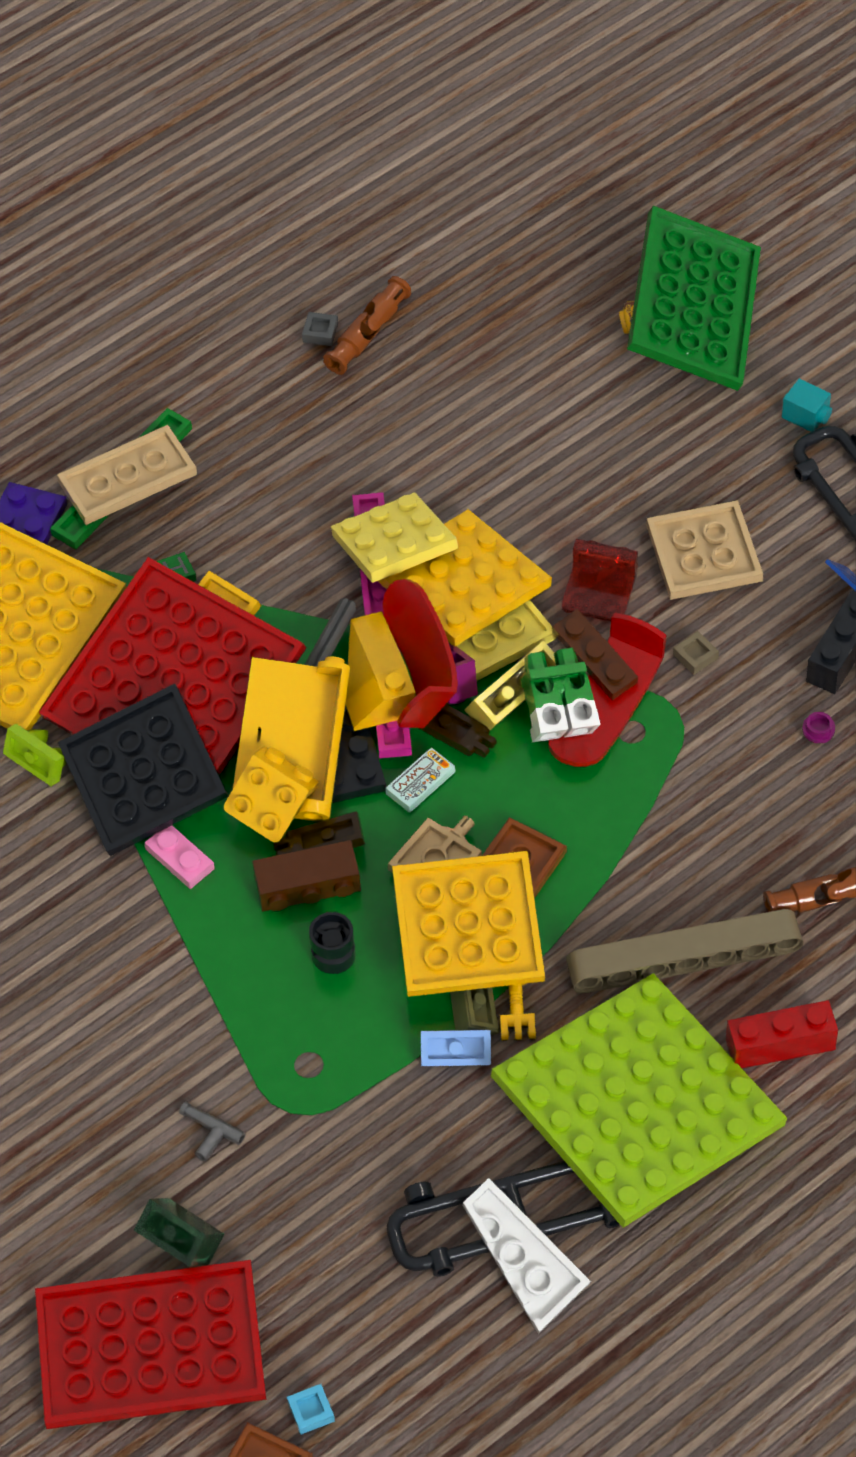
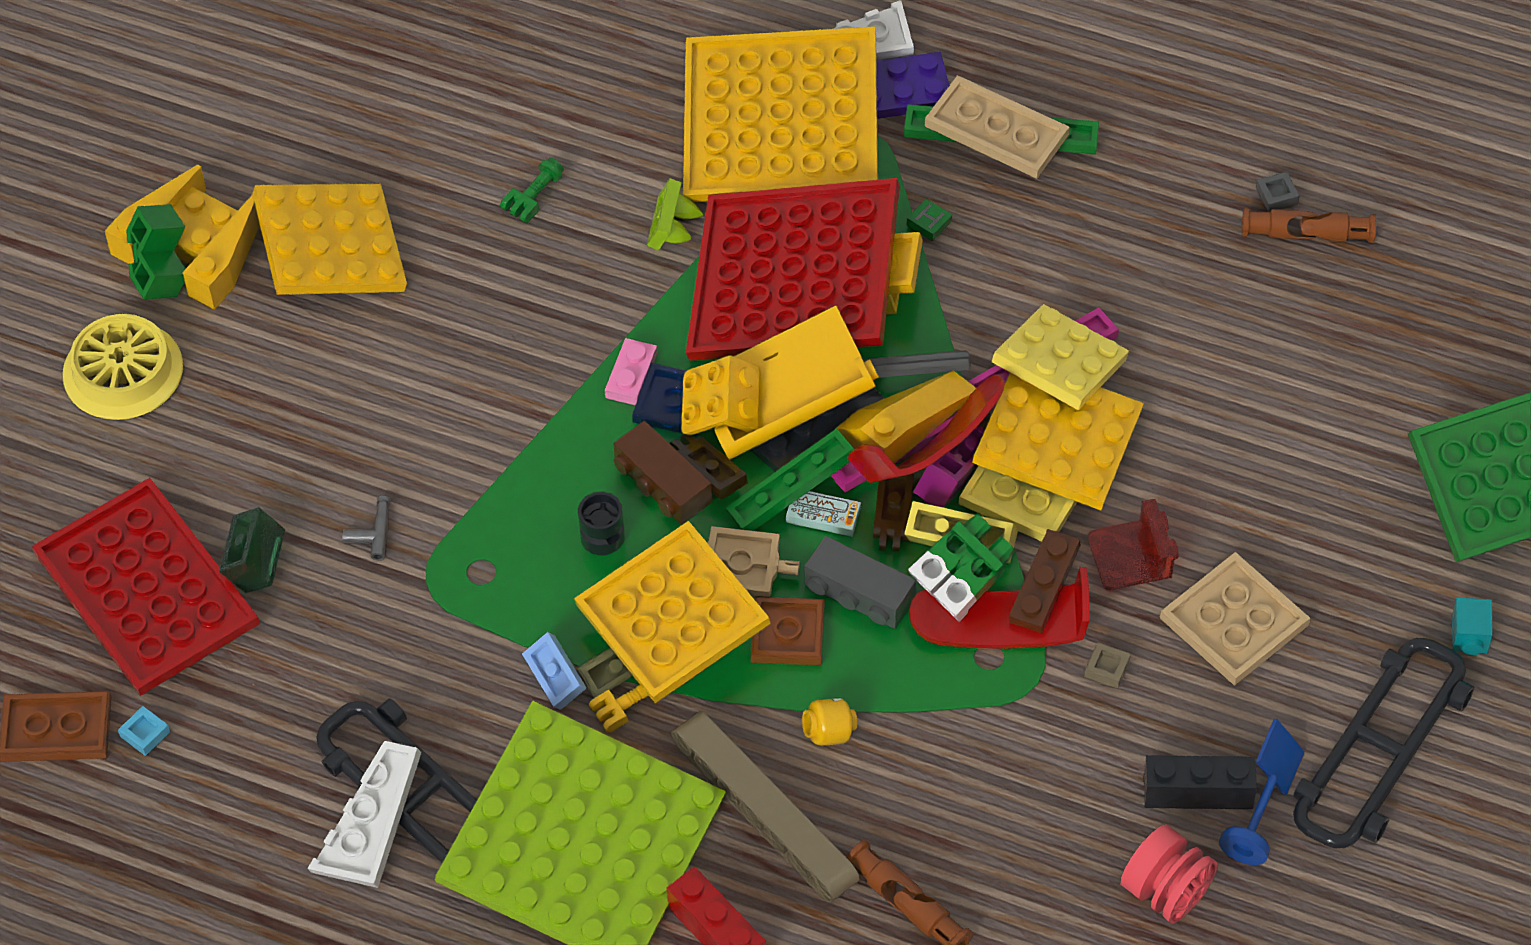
camera: 60 degrees right, 0 degrees up
(142, 769) = (690, 295): black plate -> none
(227, 841) = (661, 399): none -> clear blue tile
(385, 783) = (791, 481): none -> green plate
(512, 783) = (859, 582): none -> dark grey brick
(633, 867) = (829, 721): none -> yellow head
(818, 727) = (1089, 808): magenta plate -> none

